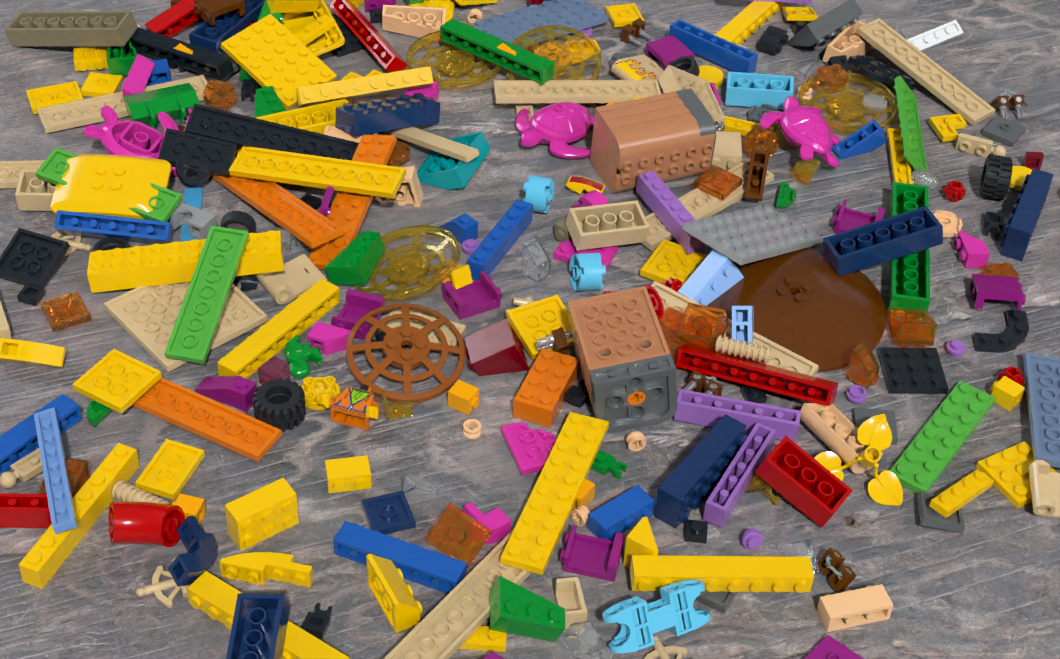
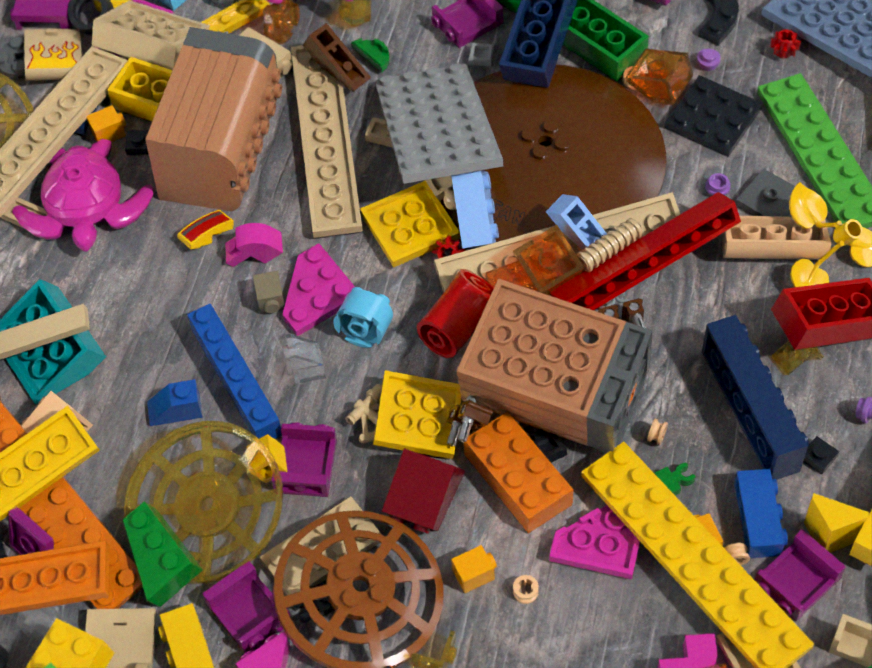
camera: 50 degrees left, 15 degrees up
(469, 246) = (214, 410): medium lavender plate -> none
(539, 192) = (191, 285): medium azure brick -> none
(607, 225) = (313, 251): tan brick -> none
(668, 210) = (330, 174): medium lavender brick -> none
(709, 409) = (697, 305): medium lavender brick -> none
(717, 182) = (311, 100): clear orange plate -> none
(738, 475) = (799, 392): medium lavender brick -> none
(753, 394) = (657, 281): black plate -> none
(863, 366) = (693, 156): clear orange slope -> none
(1007, 393) = (803, 59): yellow brick -> none

